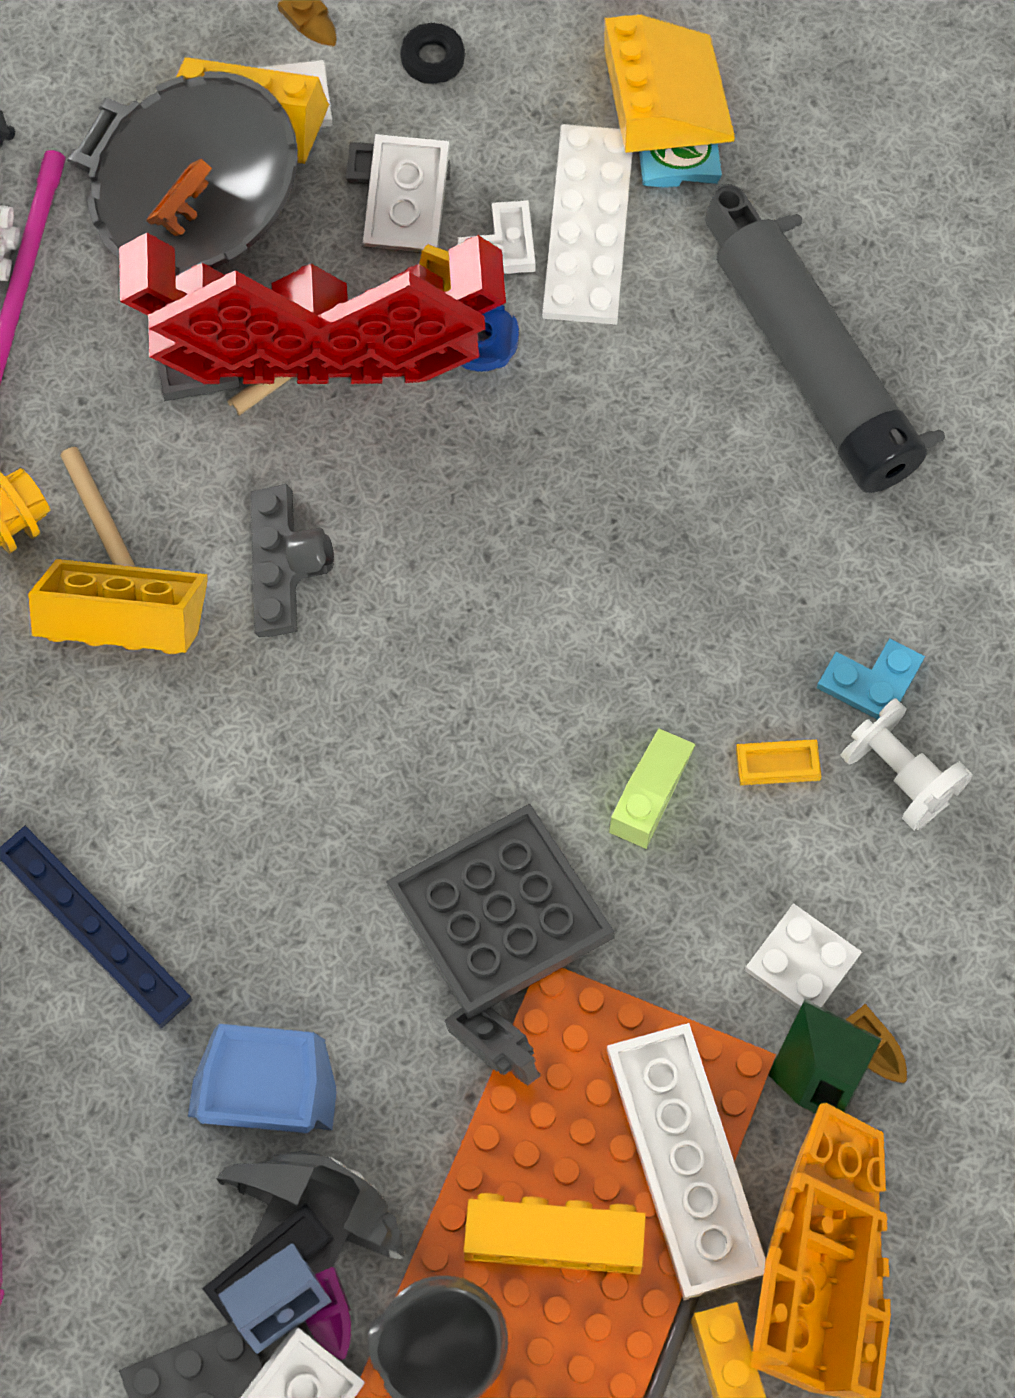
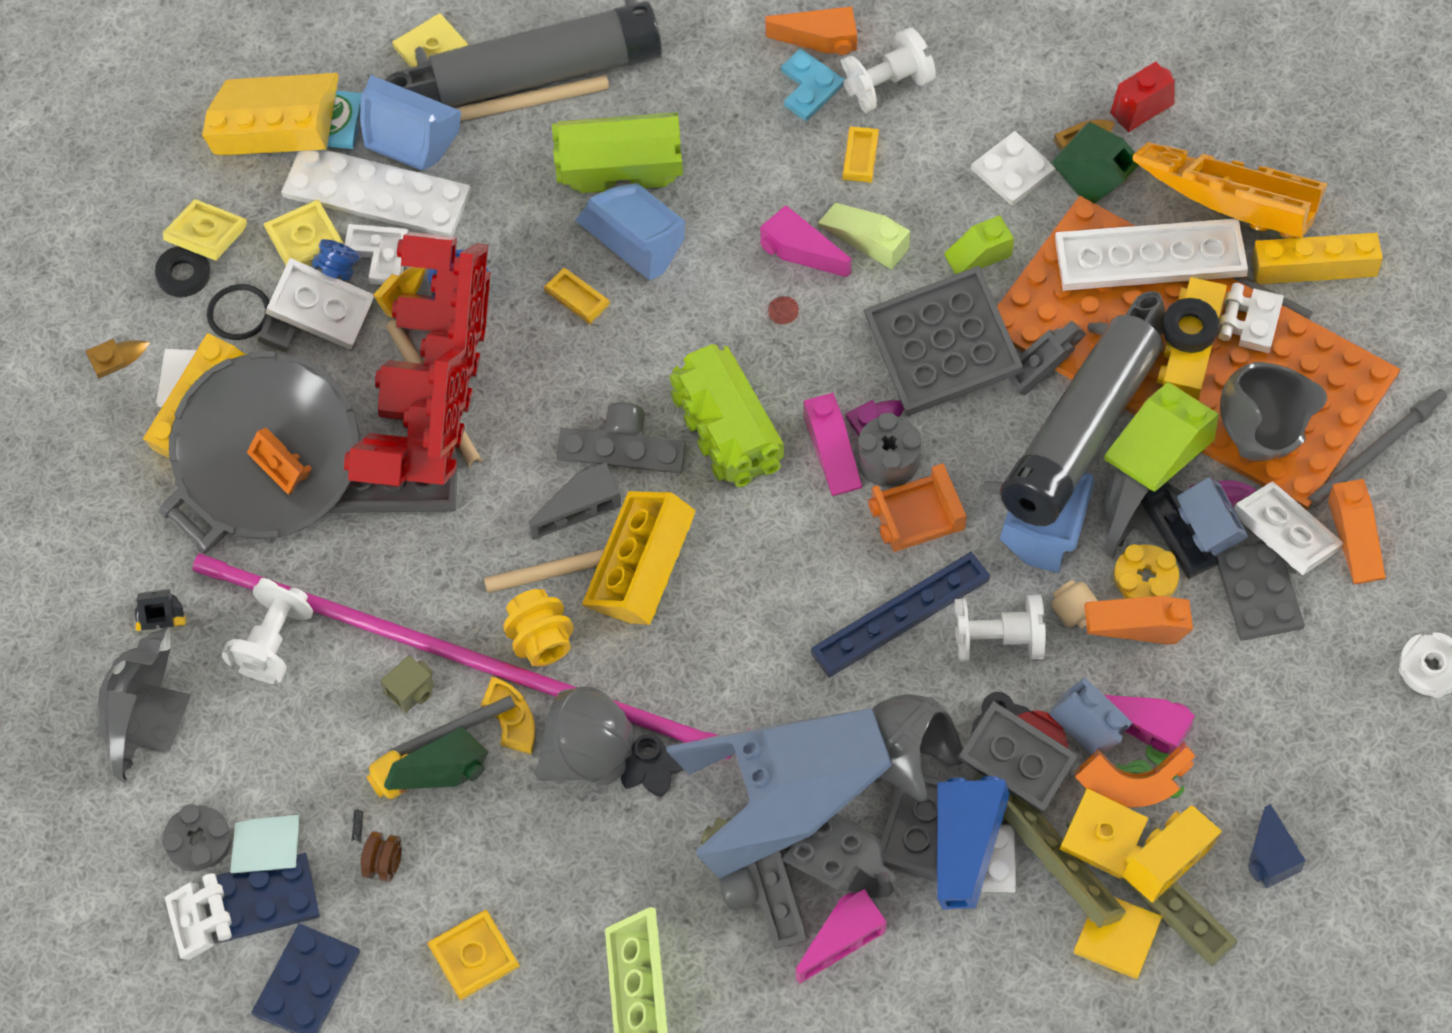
camera: 75 degrees left, 5 degrees down
(75, 1060) = (1012, 628): none -> white piece
(110, 1221) = (1140, 619): none -> orange slope
(131, 1140) = (1070, 602): none -> tan head
(194, 525) = (581, 498): none -> dark grey slope
(214, 1248) = (1146, 557): none -> yellow plate
(244, 920) = (918, 510): none -> orange panel
(322, 799) = (831, 443): none -> dark pink slope
(326, 890) = (889, 450): none -> dark grey brick
(331, 664) = (726, 415): none -> lime brick
(358, 1203) = (1163, 437): none -> lime slope
(377, 846) = (867, 412): none -> magenta plate
(392, 94) = (221, 293): none -> black tyre
(397, 1100) = (1084, 414): none -> dark grey piece
(467, 194) = (335, 259): none -> blue wheel
(487, 469) = (576, 295): none -> yellow tile
(489, 59) = (205, 229): none -> light yellow plate
(505, 161) = (300, 231): none -> light yellow plate
(518, 711) = (783, 310): none -> clear red piece
(577, 1201) = (1190, 342): none -> black tyre
(592, 512) = (635, 227): none -> medium blue helmet
(611, 1328) = (1260, 321): none -> white plate
(620, 698) = (802, 244): none -> dark pink slope
(659, 936) = (981, 246): none -> lime slope
(676, 219) = (406, 124): none -> medium blue helmet
(693, 463) = (608, 149): none -> lime brick
(760, 351) = (533, 98): none -> tan piece
(822, 237) = (433, 35): none -> light yellow plate
(956, 1115) = (1143, 96): none -> red torso
(959, 682) = (817, 30): none -> orange slope

